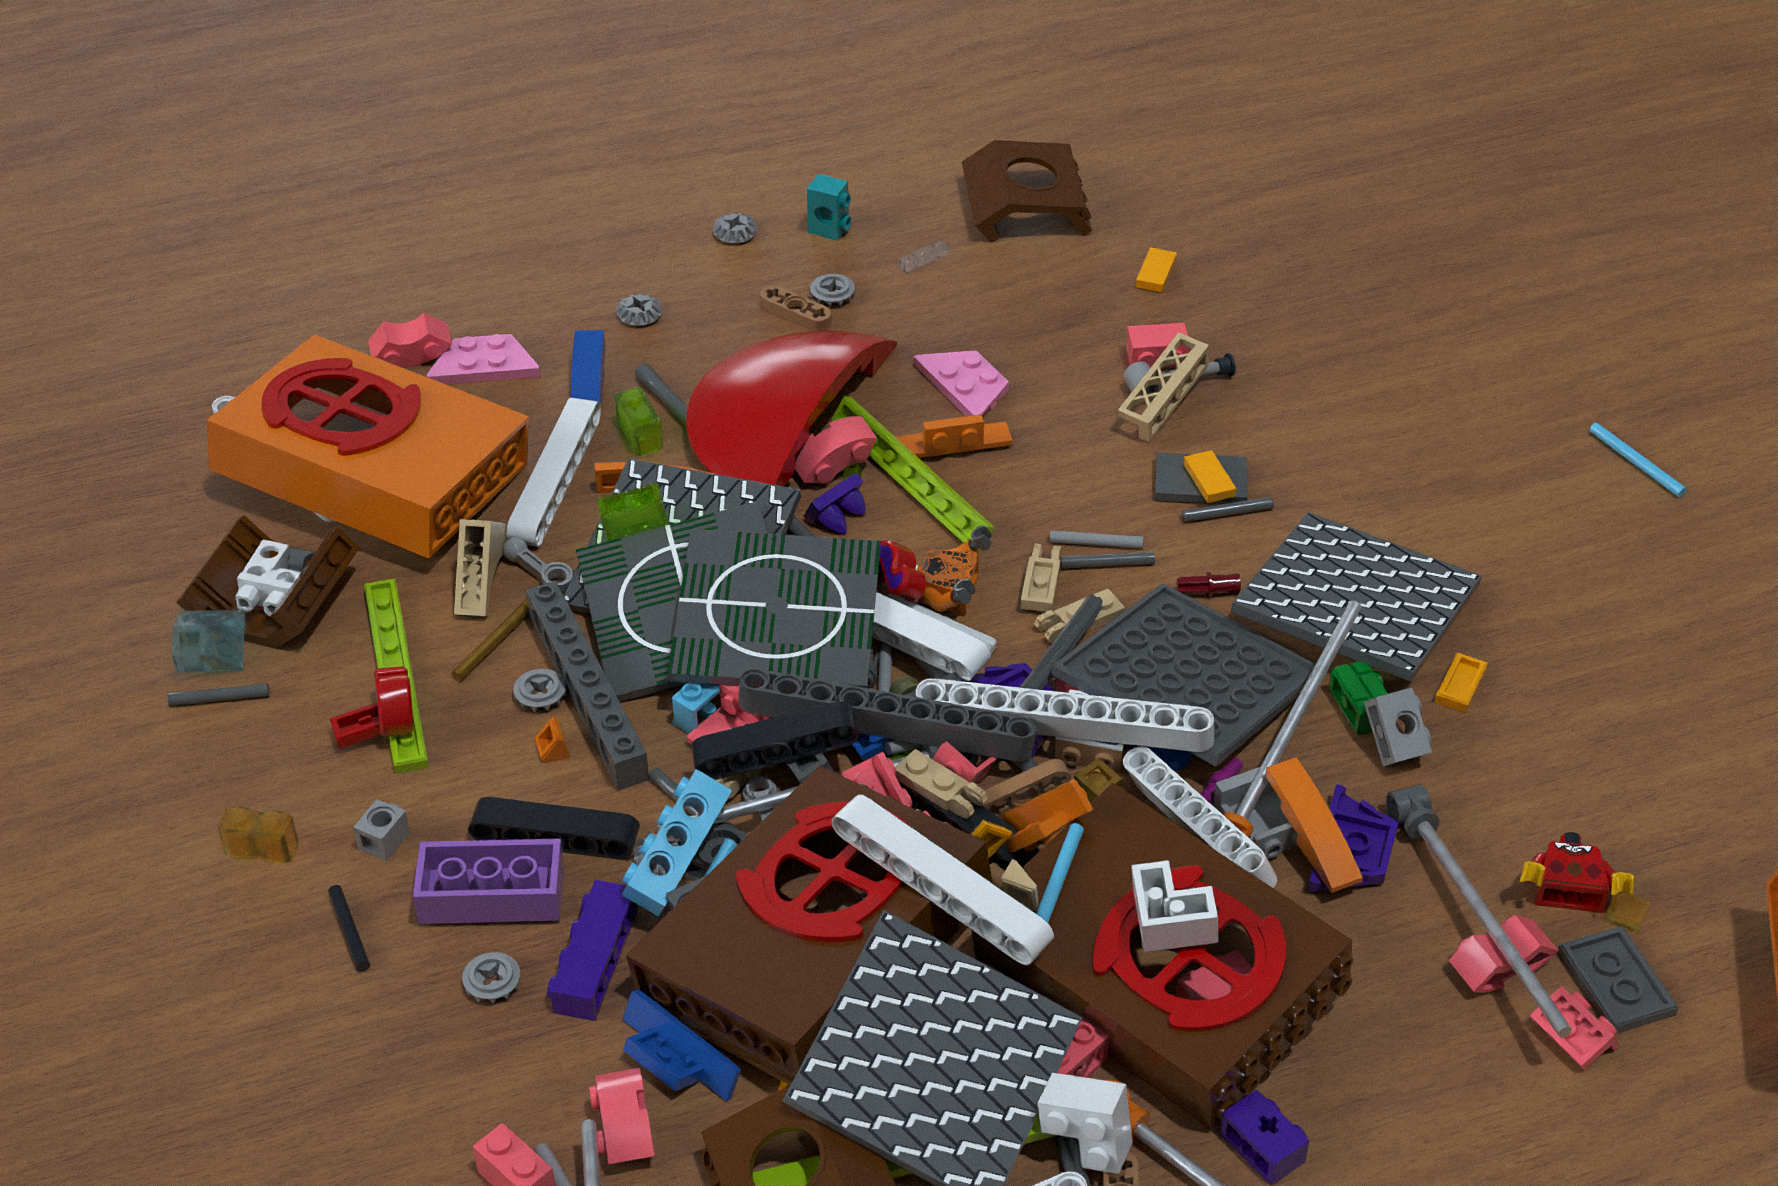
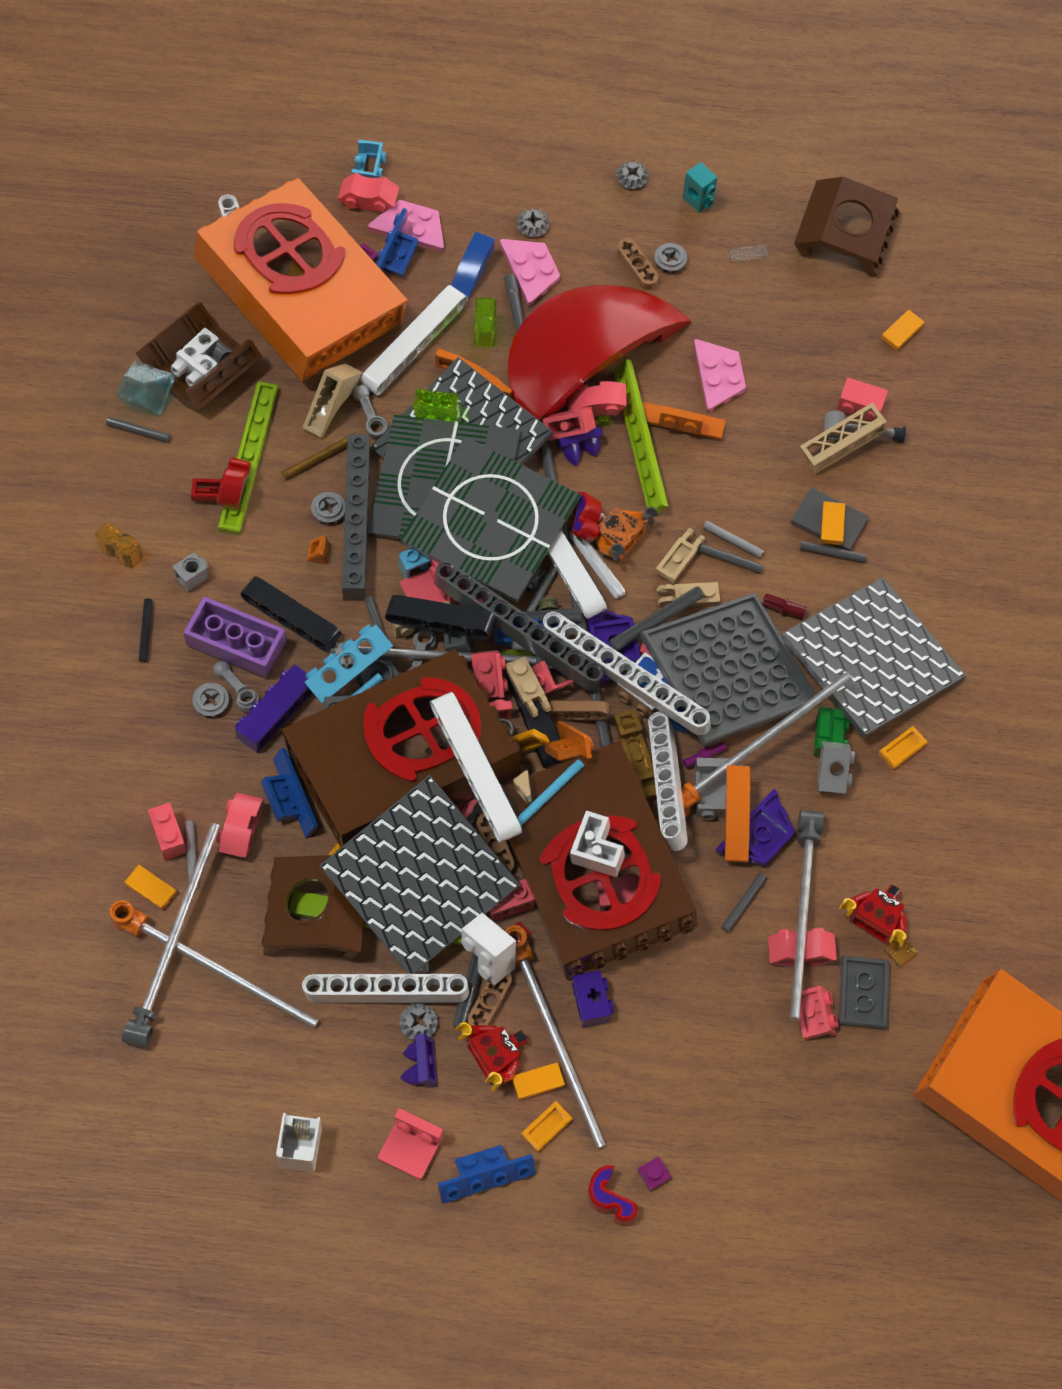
camera: 20 degrees right, 20 degrees up
(390, 301) = (371, 150): none -> medium azure window
(481, 379) = (398, 248): none -> blue bracket
(490, 935) = (223, 671): none -> light grey piece
(665, 349) = (532, 267): none -> bright pink wing
(818, 478) = (570, 423): none -> coral brick
(1386, 936) = (743, 903): none -> dark grey bar

